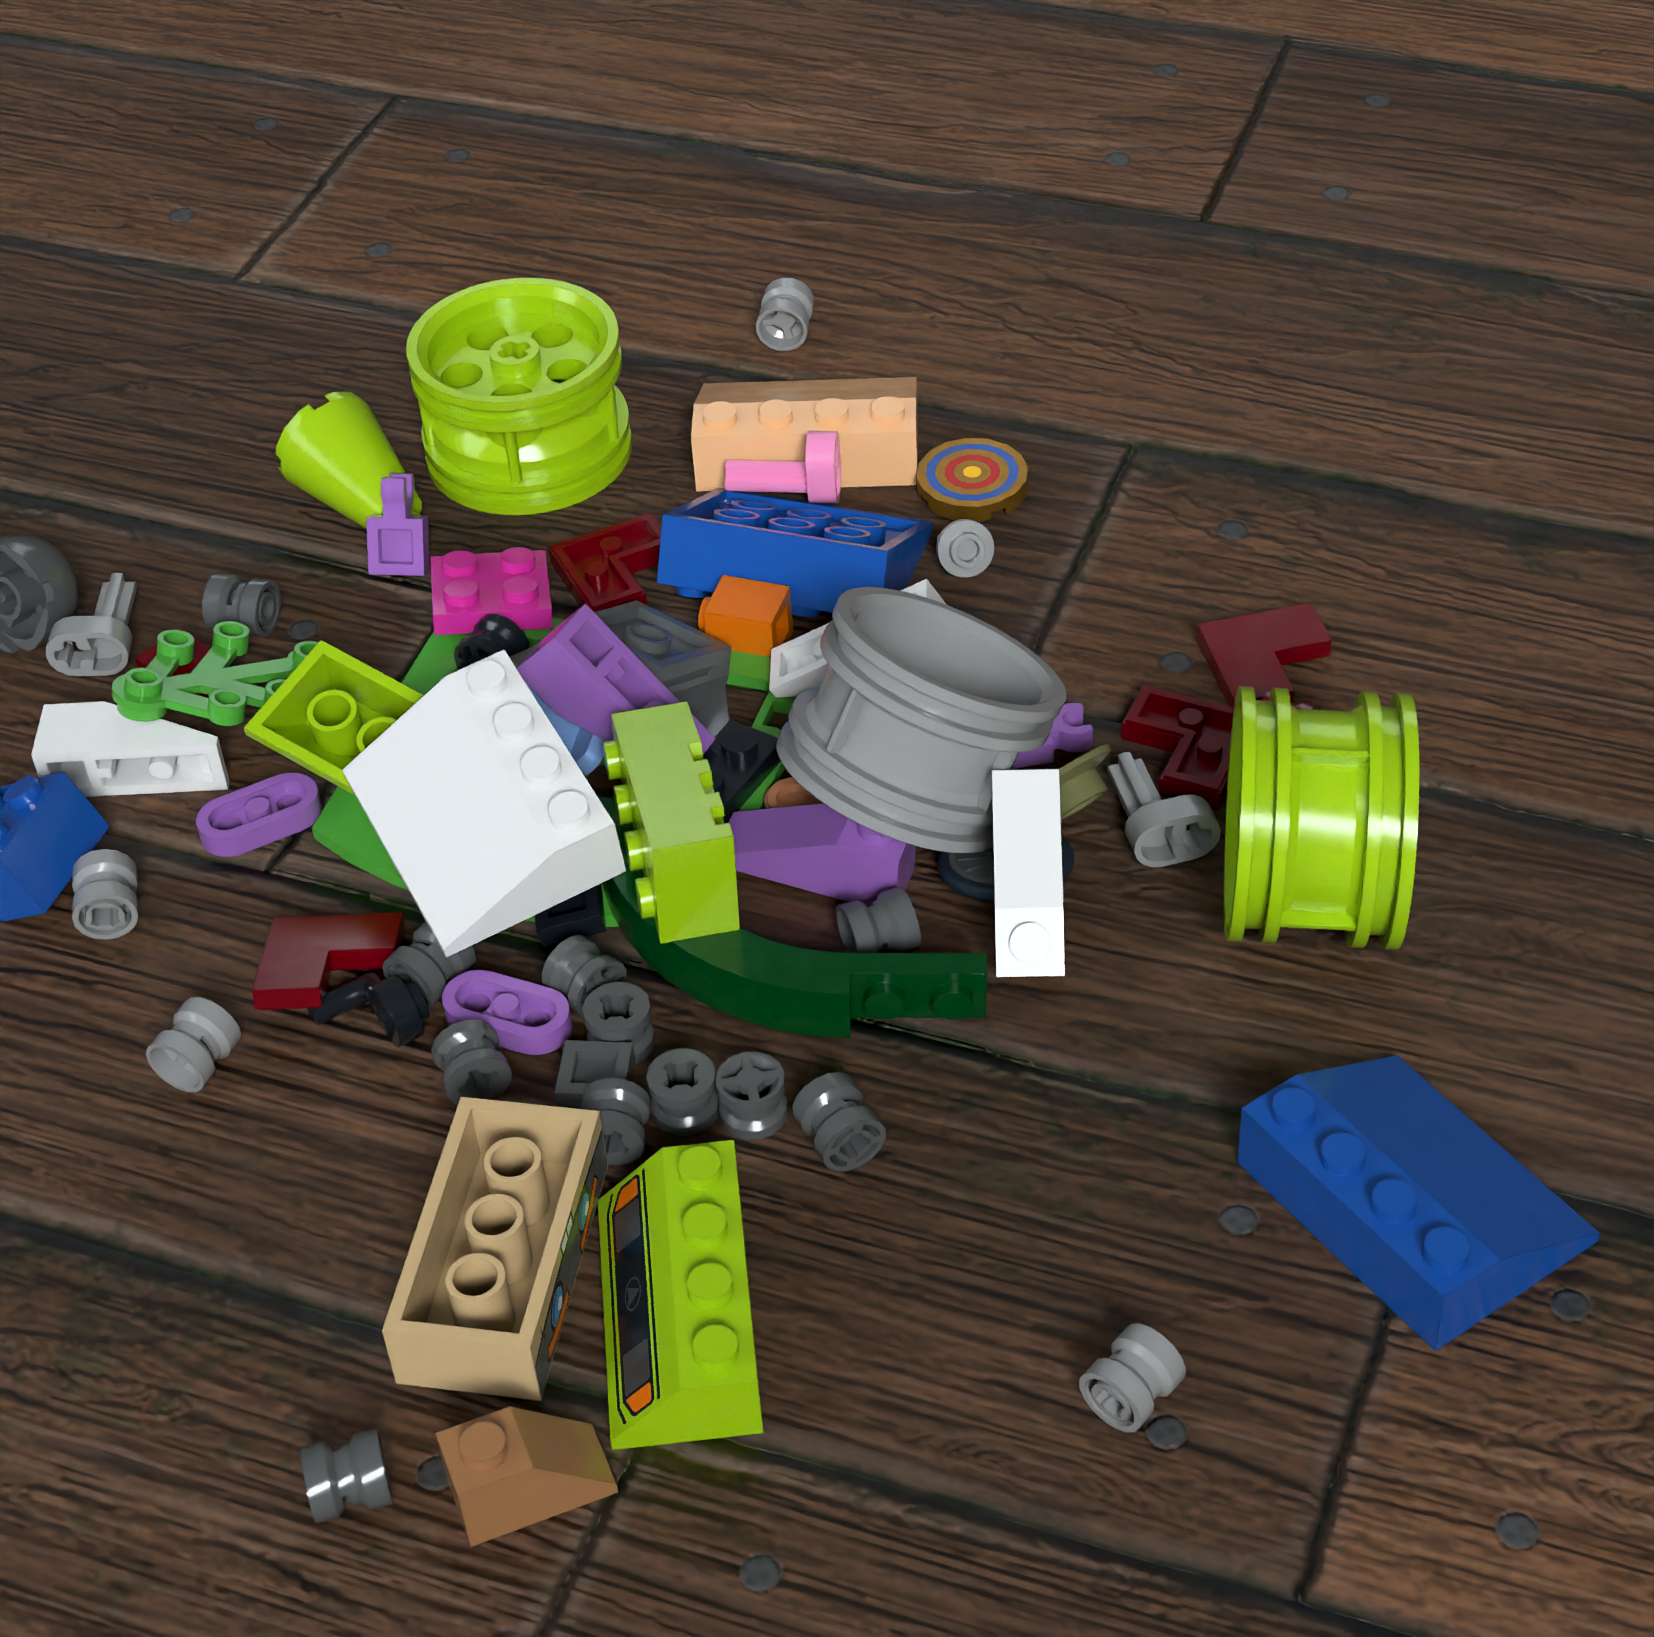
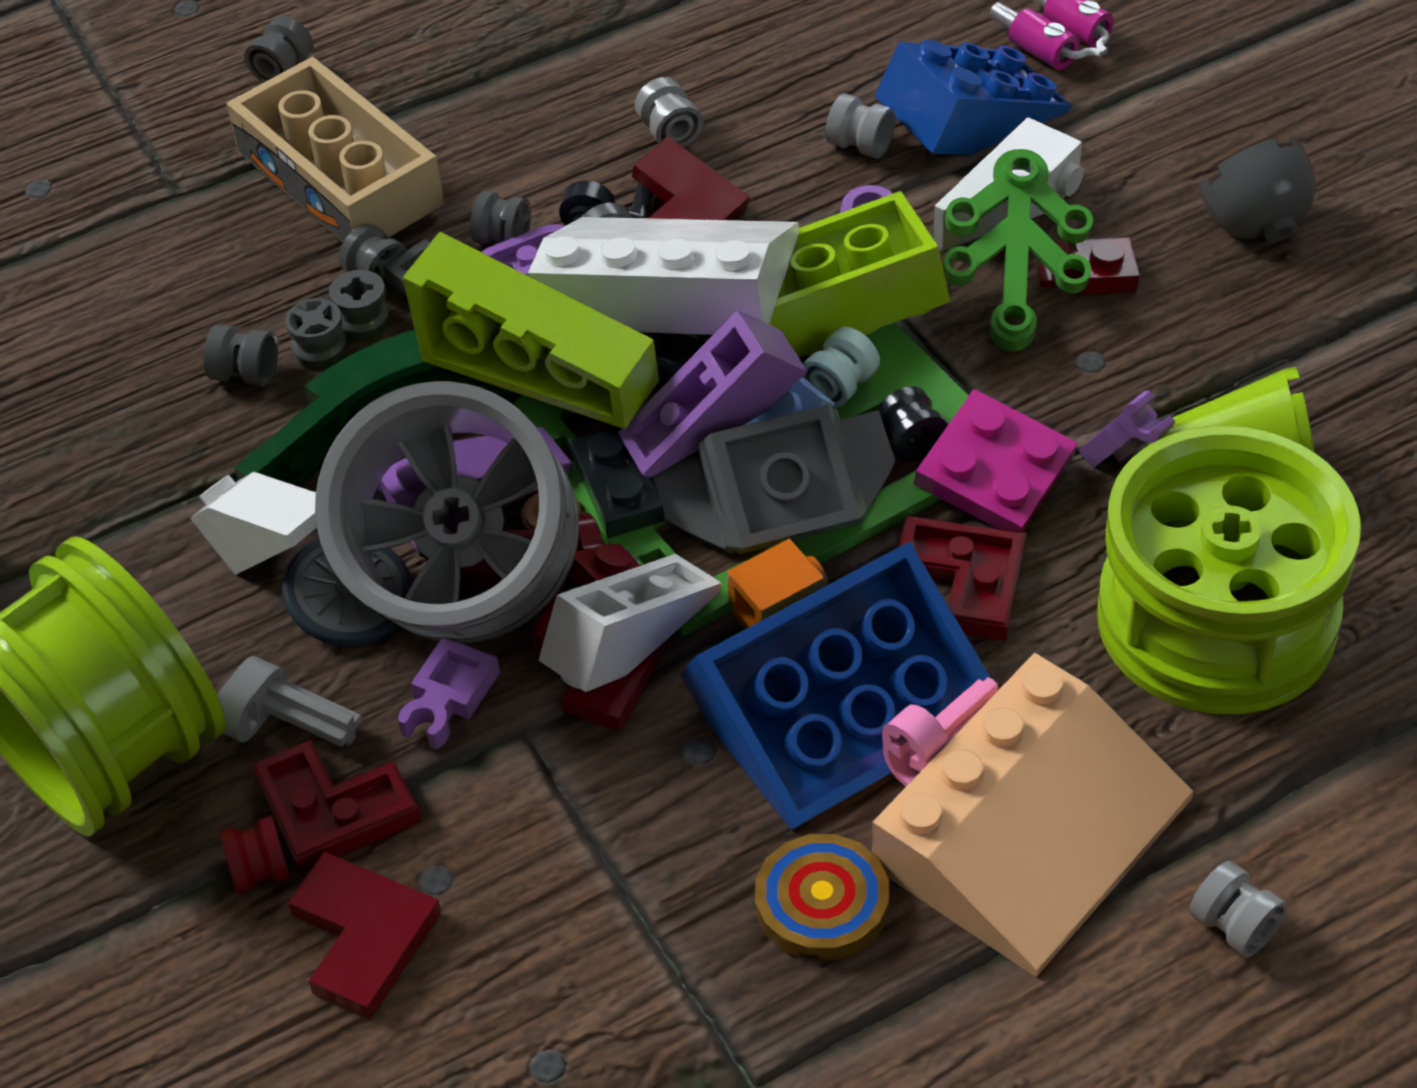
camera: 130 degrees right, 5 degrees up
(102, 636) = (1167, 225): light grey piece -> none
(249, 603) = (1127, 315): dark grey wheel -> none
(521, 1470) = (194, 109): medium nougat slope -> none
(678, 1301) = (211, 229): lime slope -> none
(965, 548) = (712, 806): light grey plate -> none
(1081, 782) = (363, 657): olive piece -> none

